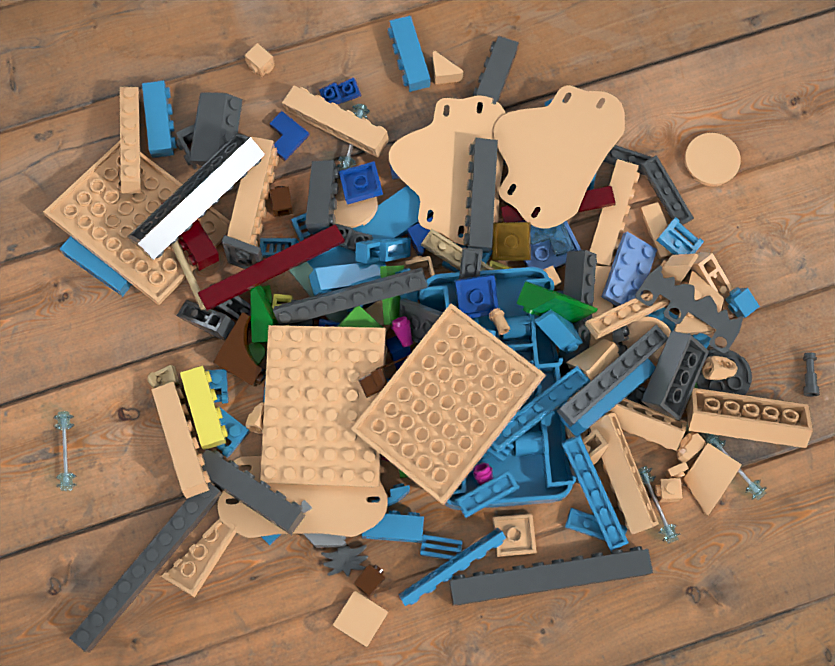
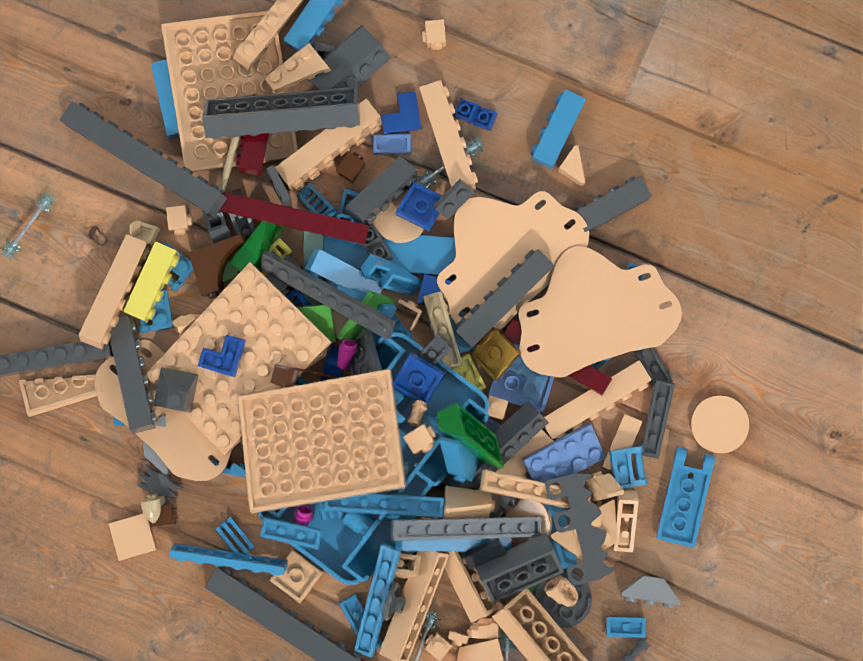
camera: 50 degrees right, 10 degrees up
(116, 319) = (144, 159): none -> dark grey brick
(178, 159) = (300, 66): none -> light nougat wing
(183, 346) = (178, 219): none -> light nougat brick
(296, 470) = (176, 390): none -> dark grey slope
(297, 162) = (392, 144): none -> medium blue tile
(317, 411) = (226, 361): none -> blue tile
(357, 578) = (152, 506): none -> tan plate
(381, 154) = (454, 198): none -> dark grey plate
(397, 528) = (216, 496): dark azure brick -> none
(521, 335) = (421, 439): none -> light nougat brick
(609, 482) = (393, 602): none -> dark grey piece
(642, 384) = (484, 553): none -> black tile
(740, 230) = (684, 500): none -> dark azure hinge
(741, 302) = (629, 557): dark azure brick -> none
(779, 314) = (651, 591): none -> light grey slope
(786, 355) = (626, 627): none -> dark azure plate

